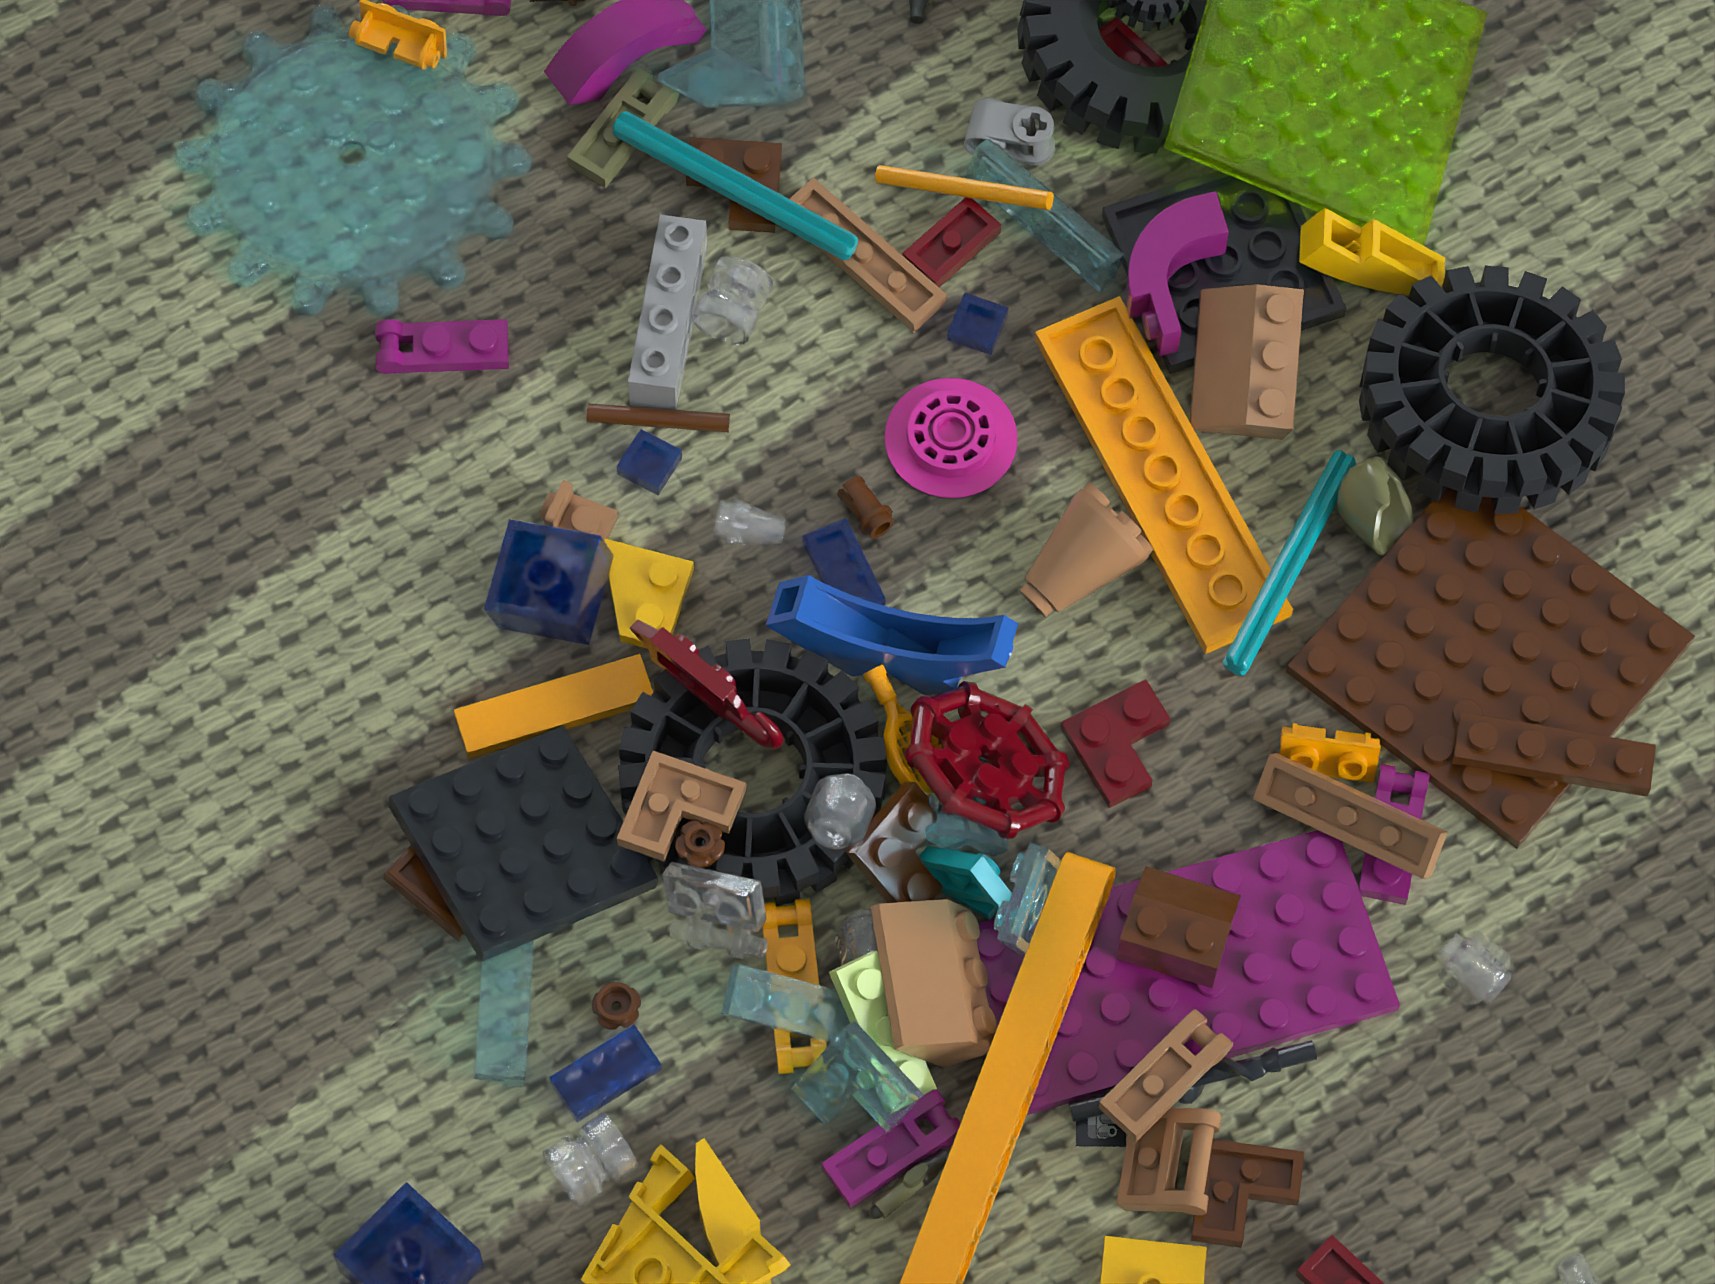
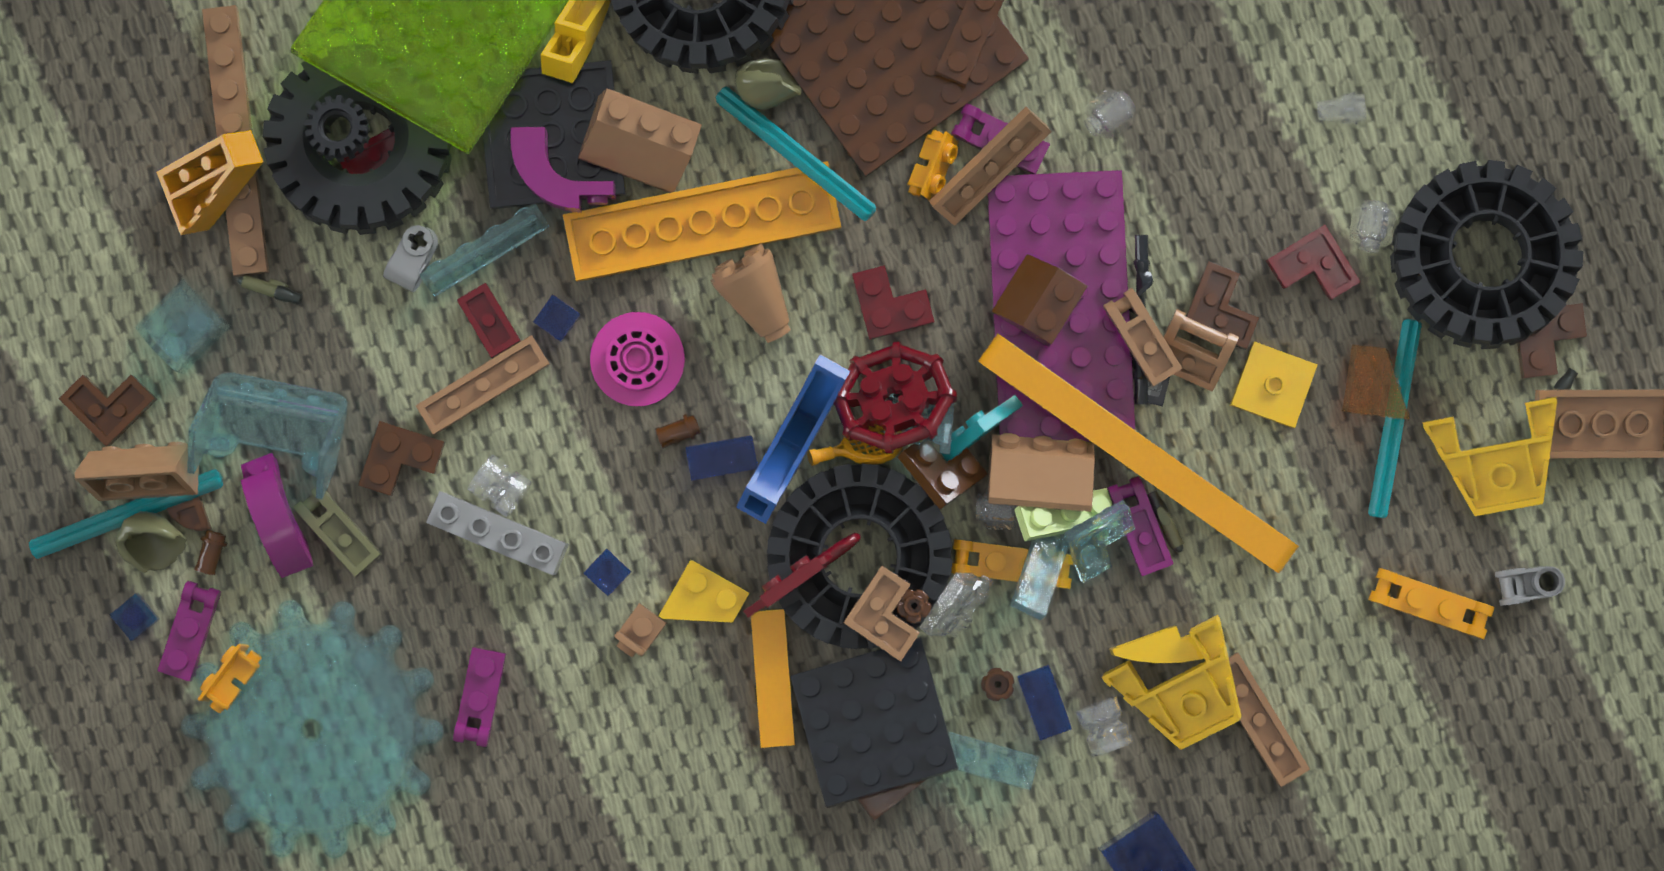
camera: 80 degrees left, 20 degrees up
(549, 581) = (688, 663): clear blue brick -> none
(658, 417) = (572, 558): reddish brown bar -> none
(735, 185) = (411, 463): teal axle -> none
(745, 524) = (671, 517): clear cone -> none
(839, 811) = (916, 506): clear head -> none
(964, 187) = (452, 301): light orange bar -> none
(1033, 879) = (1022, 405): clear light blue plate -> none

